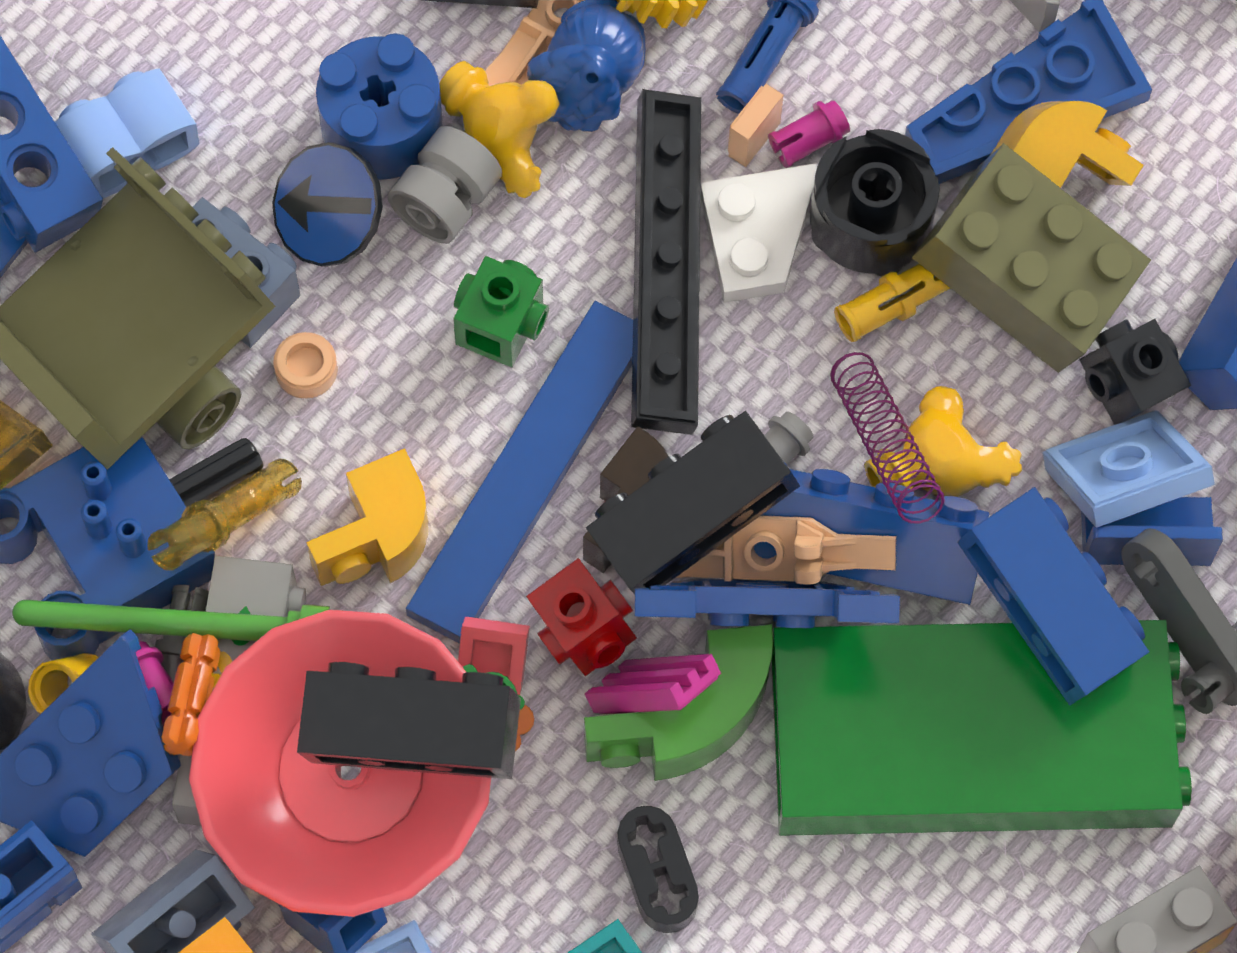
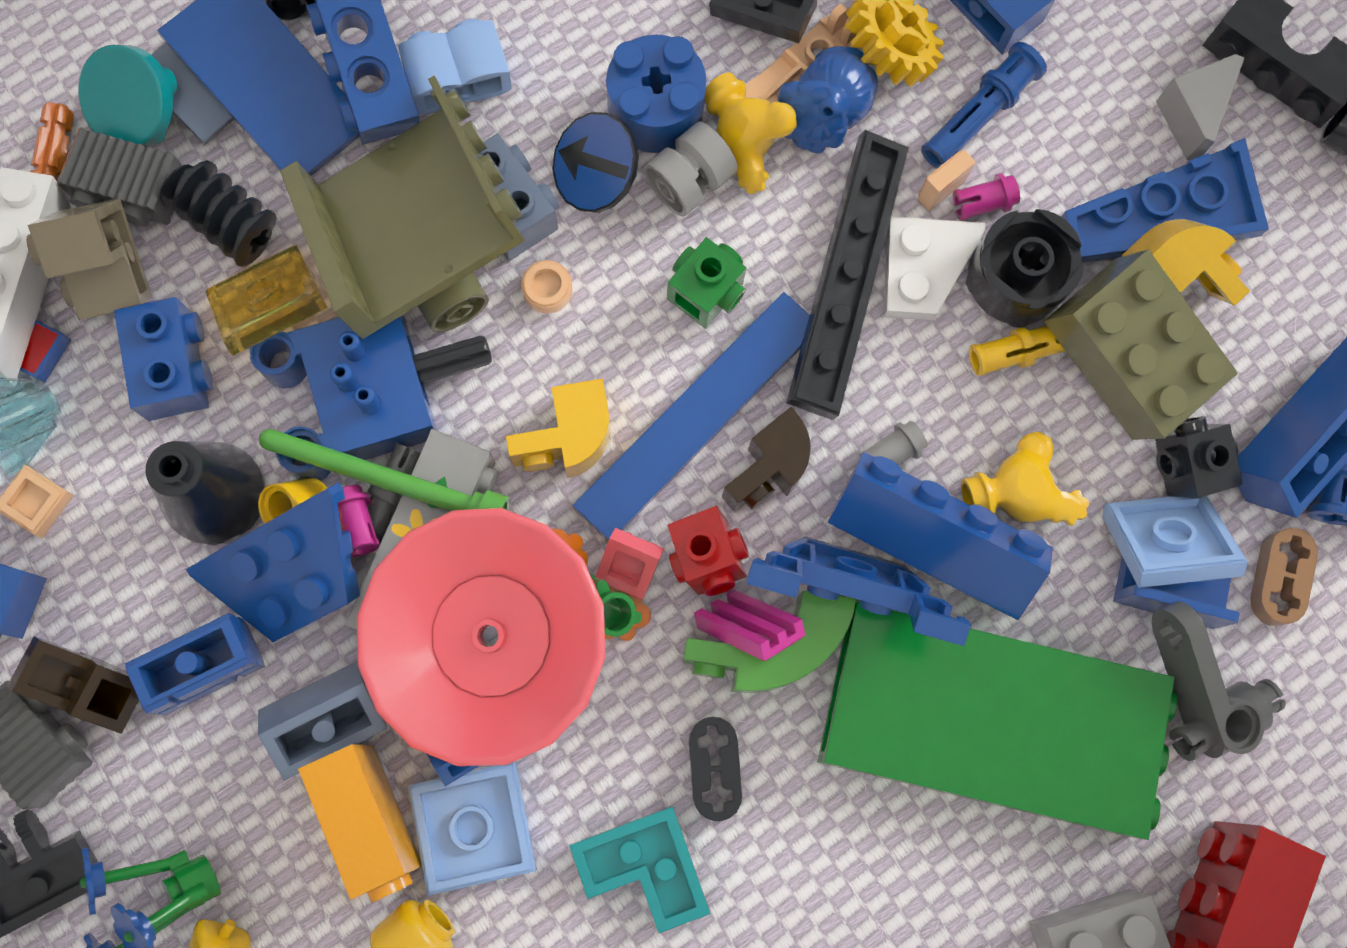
camera: 10 degrees right, 10 degrees up
(190, 692) = (378, 541): orange axle -> none
(209, 522) = (431, 403): clear yellow pin -> none
(409, 721) = (537, 627): black brick -> none
(692, 503) = (817, 489): black brick -> none
(802, 548) = (836, 525): light nougat piece -> none
(842, 390) = (976, 465): magenta piece -> none
(1054, 595) = (1094, 643): blue brick -> none

